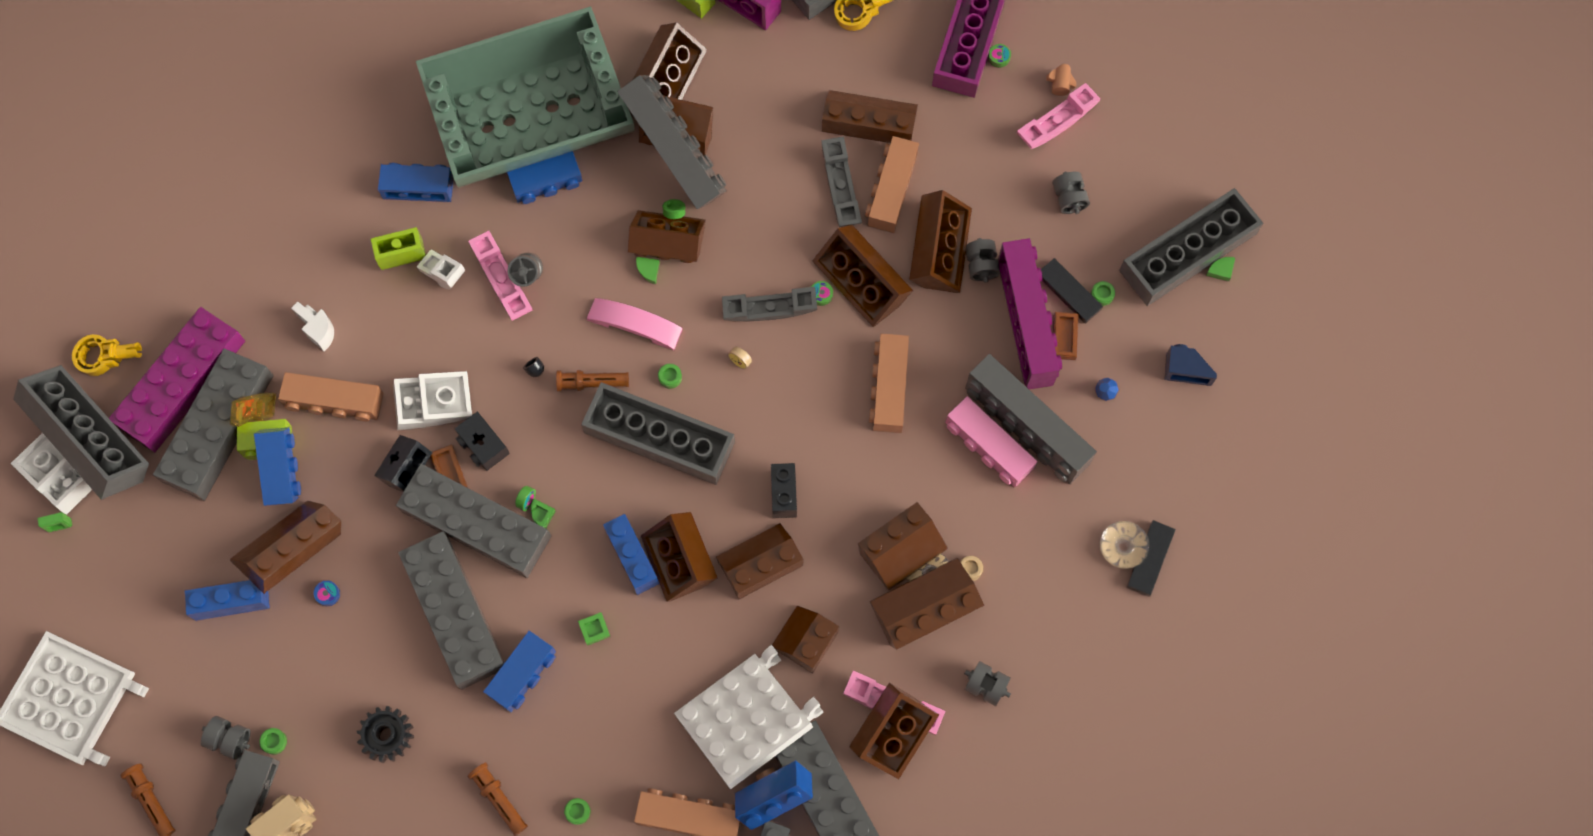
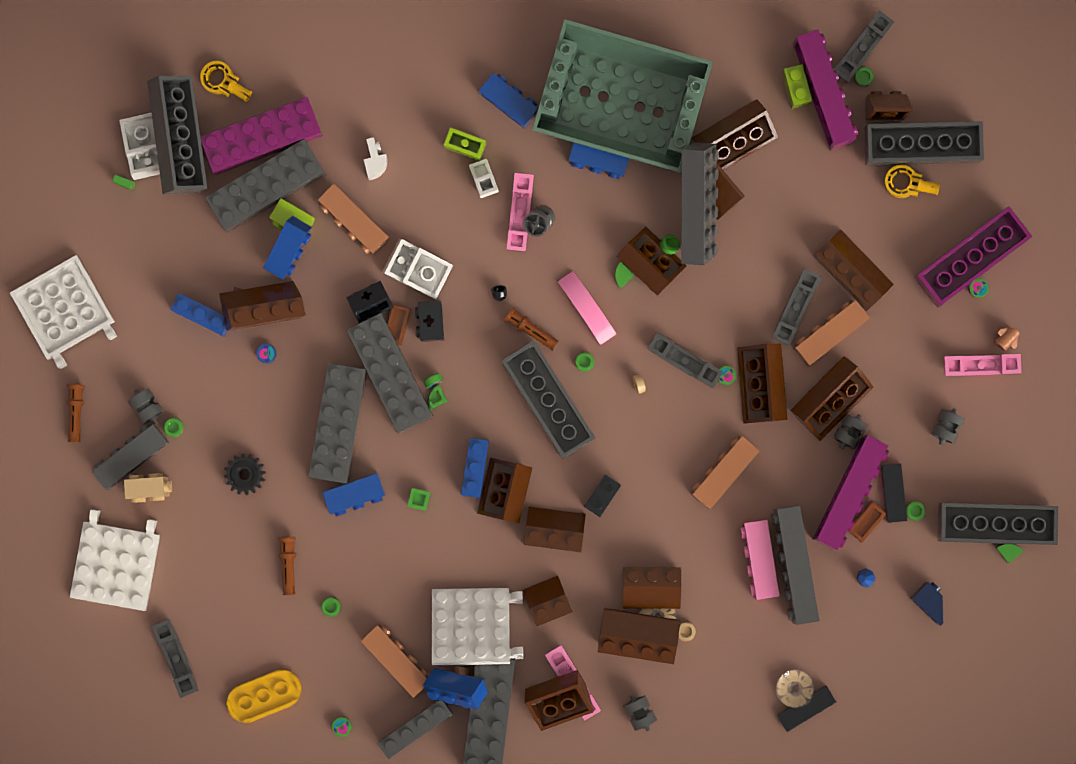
camera: 35 degrees right, 15 degrees up
(252, 407) = (297, 194): clear yellow slope -> none

